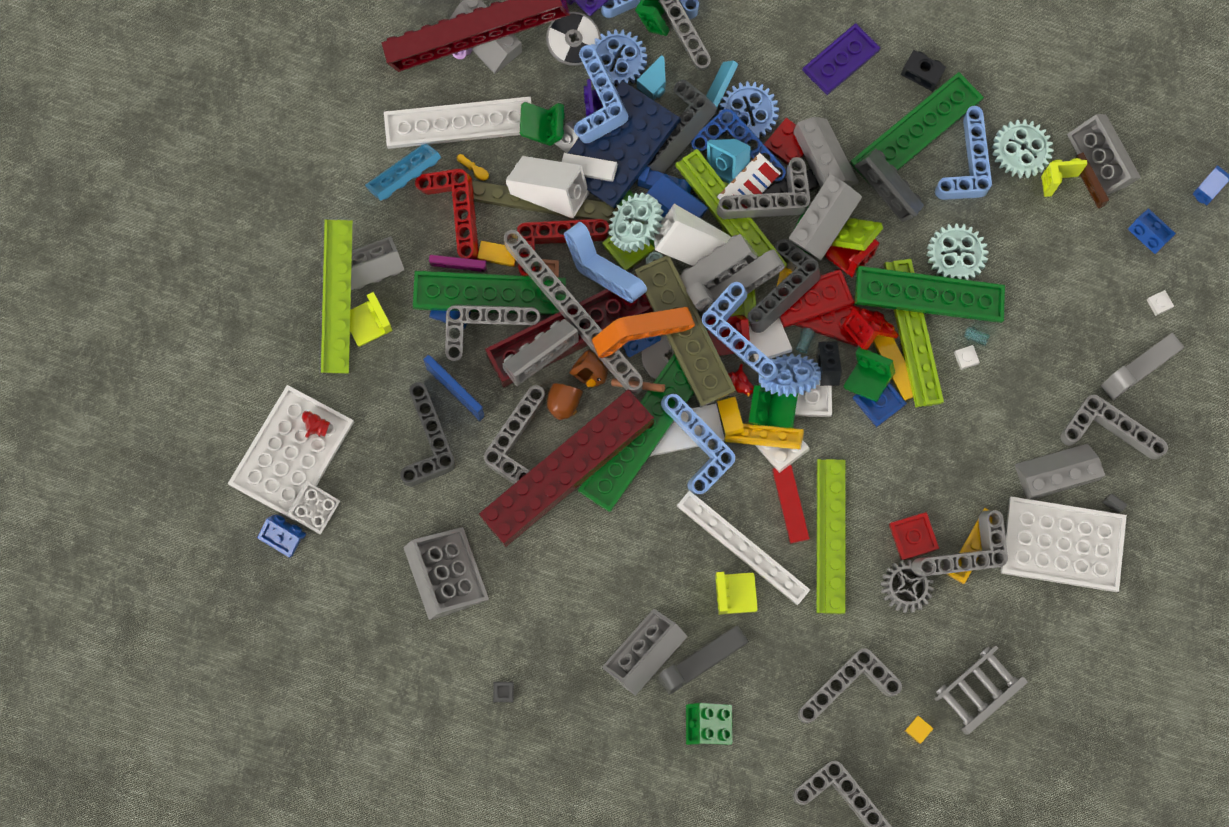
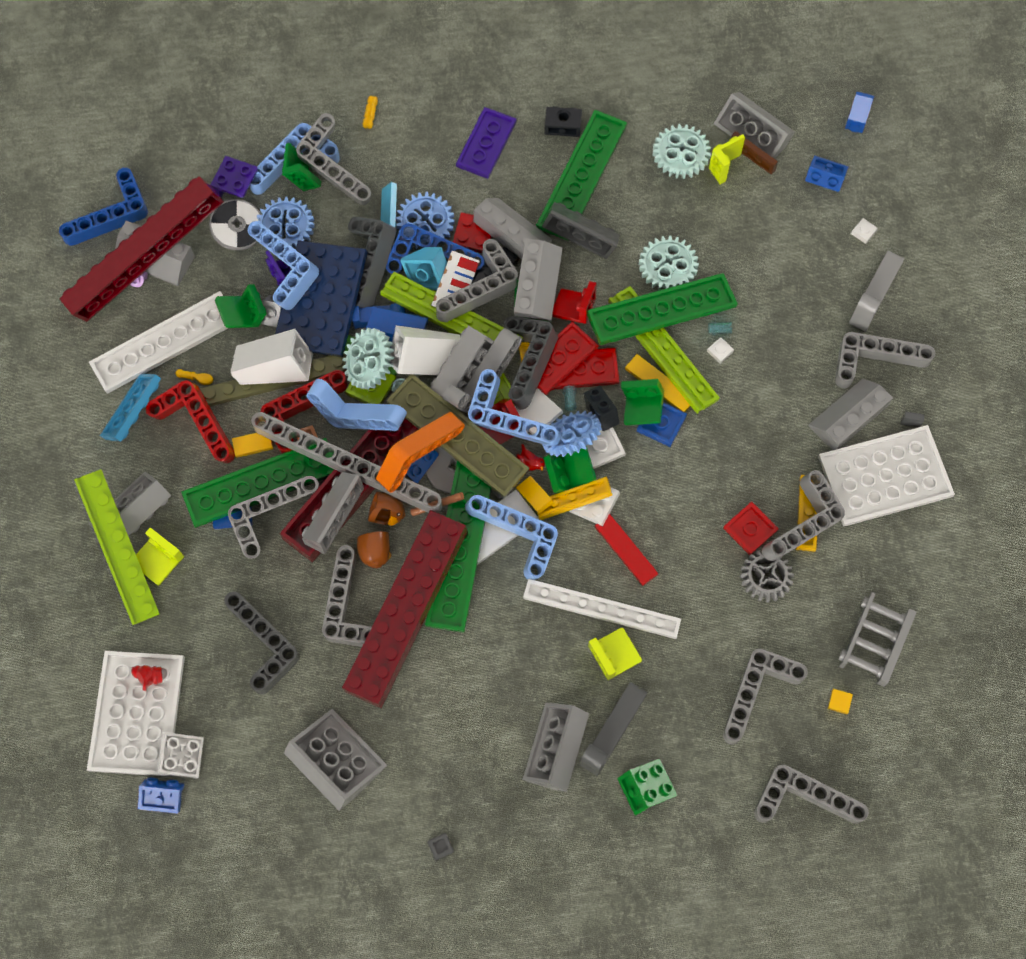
camera: 20 degrees left, 5 degrees down
(454, 387) = (266, 582): blue tile -> none
(458, 263) = (219, 468): magenta tile -> none
(593, 167) = (307, 327): white tile -> none
(653, 80) = (326, 229): medium azure slope -> none
(830, 537) = (676, 563): lime plate -> none
(857, 234) = (573, 284): lime plate -> none
(866, 325) = (619, 361): red bracket -> none
(982, 160) = (652, 192): light blue beam -> none

